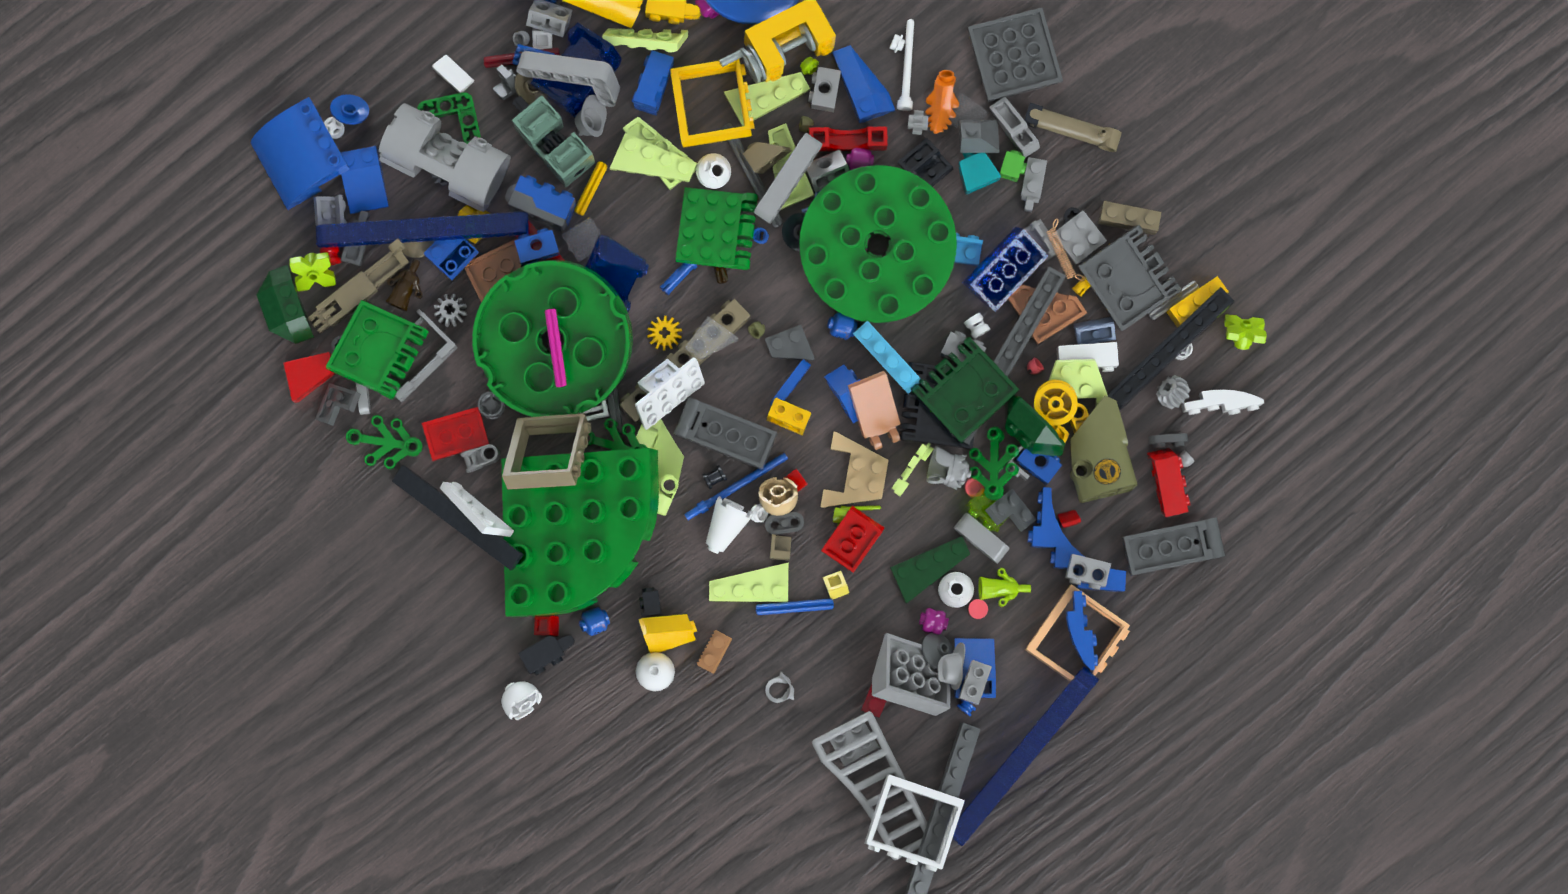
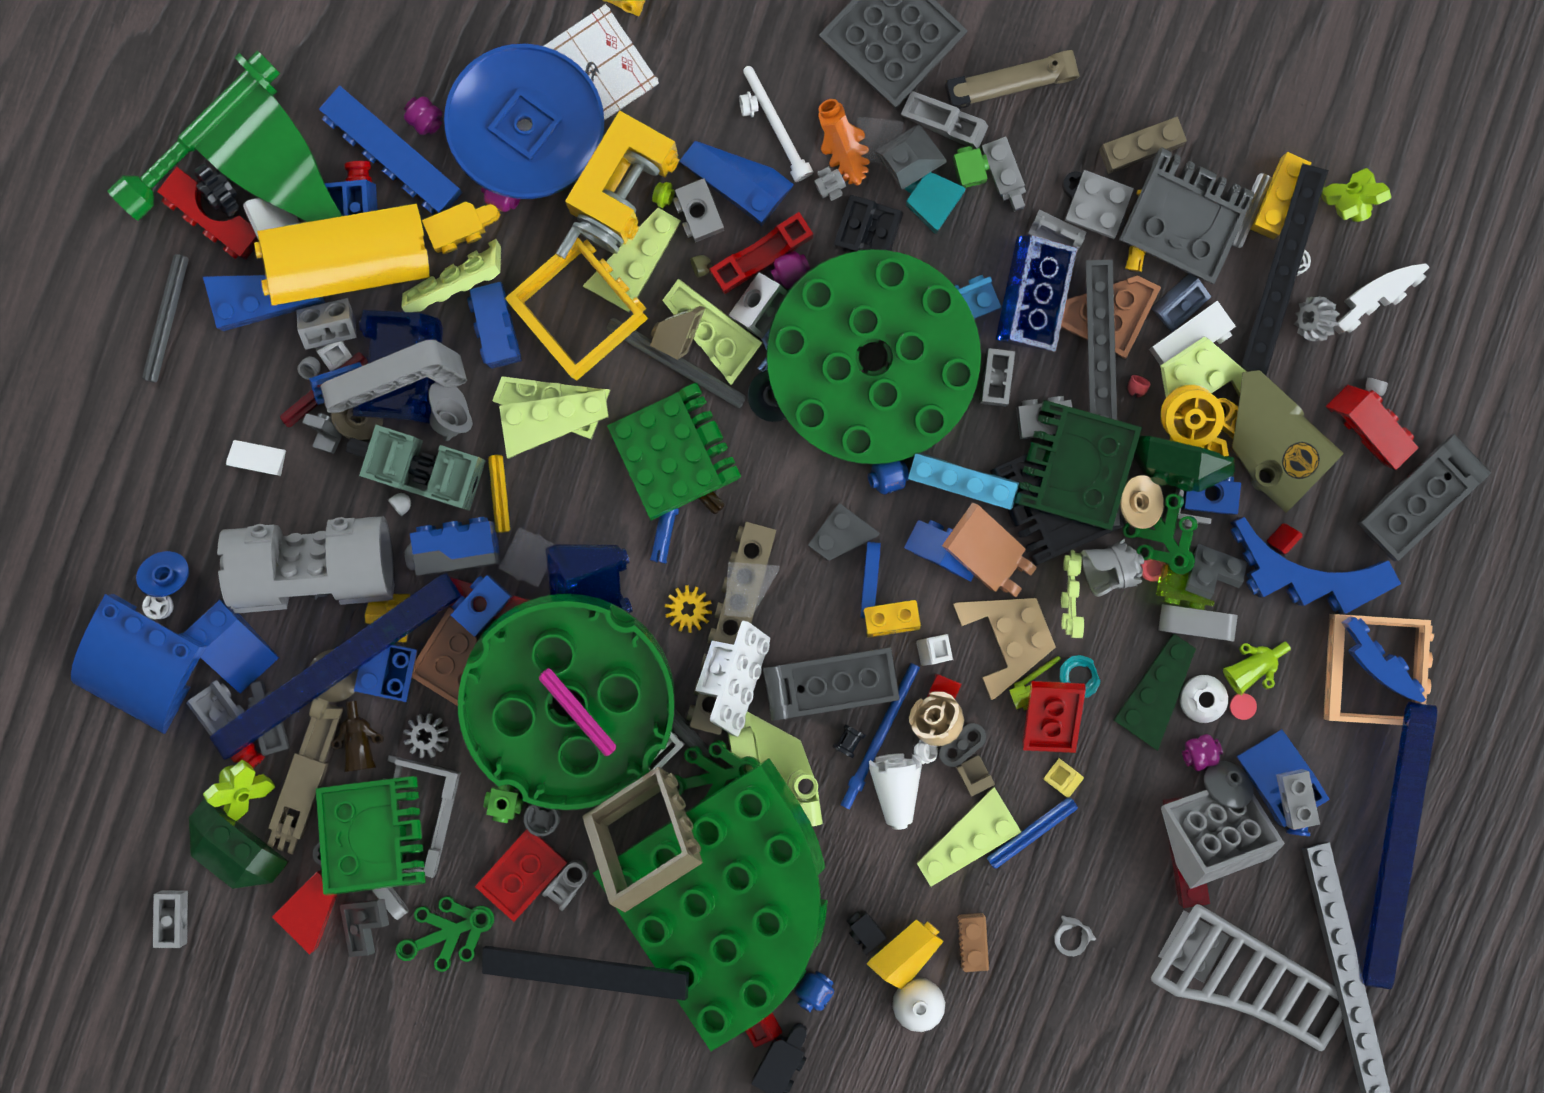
camera: 20 degrees left, 5 degrees up
(218, 325) = (170, 919): none -> light grey brick
(462, 111) = (294, 495): green beam -> none
(475, 511) = (600, 953): white wing -> none
(479, 384) = (513, 801): none -> bright green brick
(525, 156) = (401, 503): none -> white hinge
(705, 174) = (617, 390): white piece -> none
(756, 329) = (792, 540): olive hinge -> none
(757, 235) = (725, 430): blue hinge -> none
(788, 178) = (721, 343): light grey beam -> none
(804, 453) = (934, 650): none -> white slope
(889, 515) = (1079, 660): none -> teal piece
(924, 791) = (1346, 1042): white window -> none
(948, 305) = (997, 377): none -> light grey brick
(951, 667) = (1258, 794): light grey piece -> none
(978, 330) = (1048, 383): white wheel -> none
(997, 438) = (1141, 502): none -> tan dish
(1062, 253) = (1097, 247): light nougat piece -> none
(1088, 566) = (1346, 584): light grey brick -> none
(1177, 440) = (1352, 371): dark grey plate -> none

